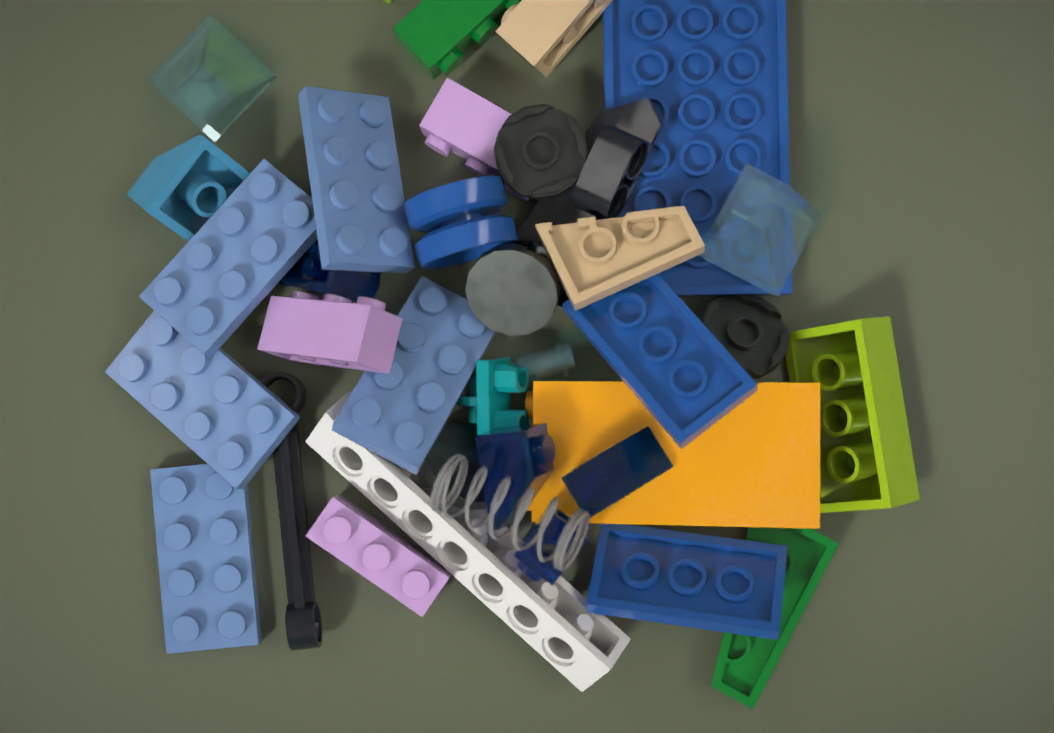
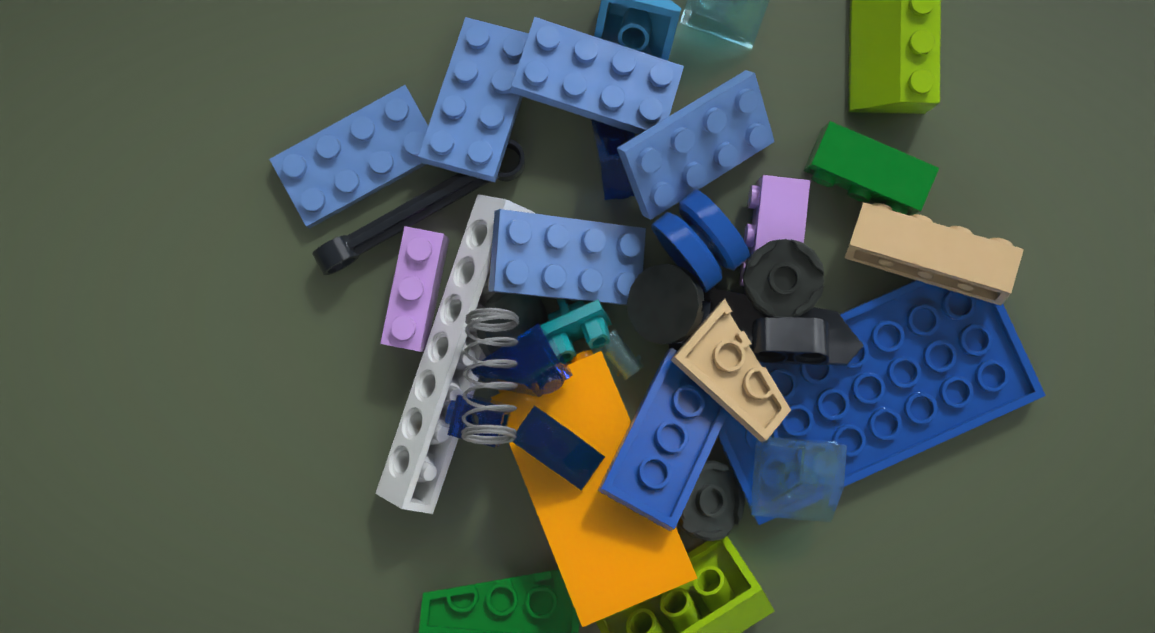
camera: 65 degrees right, 0 degrees up
(331, 331) = (571, 177): lavender brick -> none
(688, 580) = (498, 540): blue plate -> none

